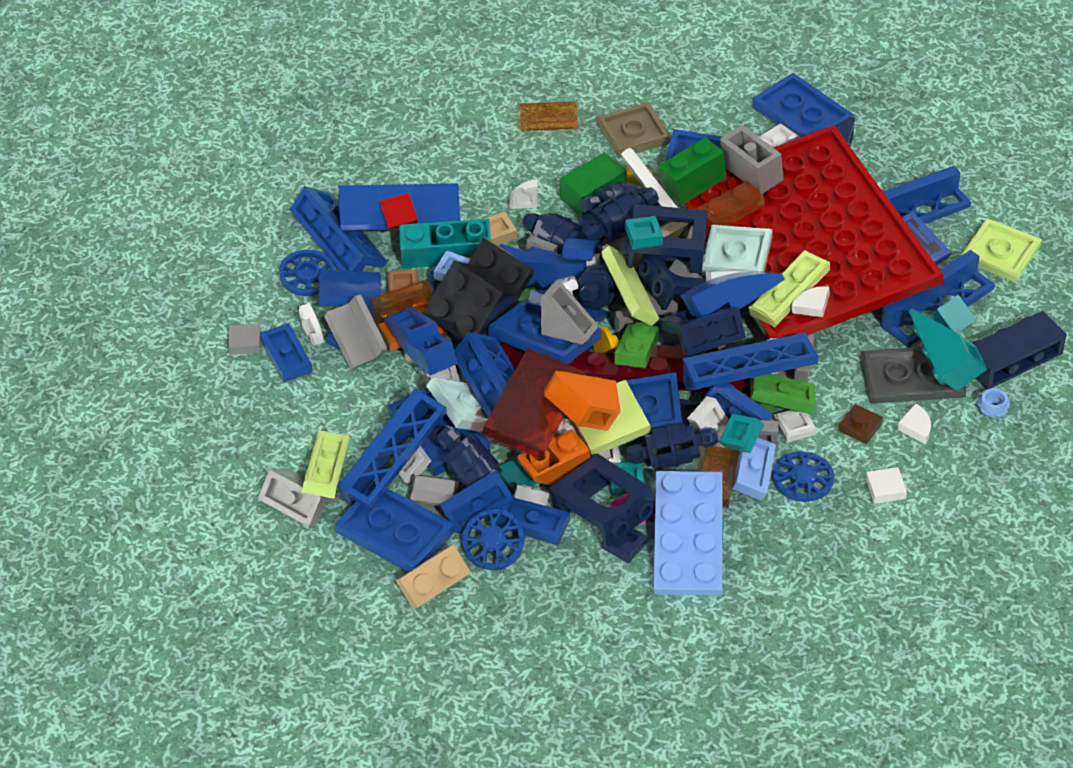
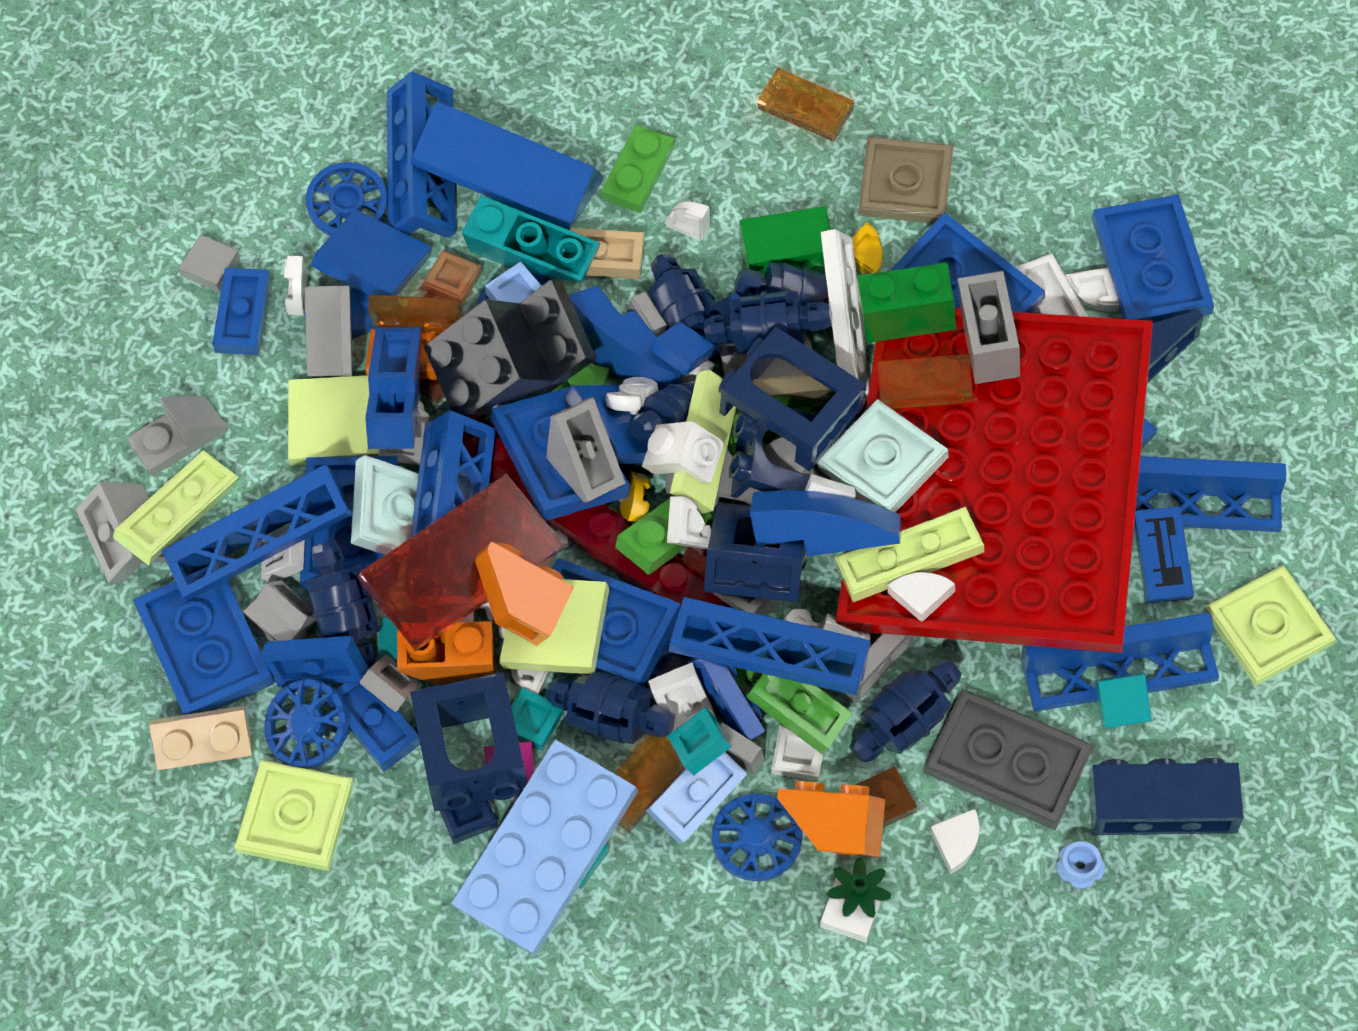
camera: 30 degrees right, 15 degrees up
(291, 434) = (182, 430): none -> light grey slope
(384, 382) = (327, 418): none -> yellowish green tile
(398, 211) = (492, 175): red tile -> none
(473, 186) = (638, 168): none -> bright green plate
(521, 592) = (294, 815): none -> yellowish green tile
(623, 289) = (683, 449): none -> white bracket
(644, 232) = (749, 382): teal tile -> none
(650, 332) = (686, 524): none -> white tile
(841, 371) = (905, 710): none -> dark blue piece
(846, 440) = (837, 821): none -> orange slope
(884, 469) = (859, 896): none -> dark green plant
(953, 356) = (1062, 758): teal slope -> none

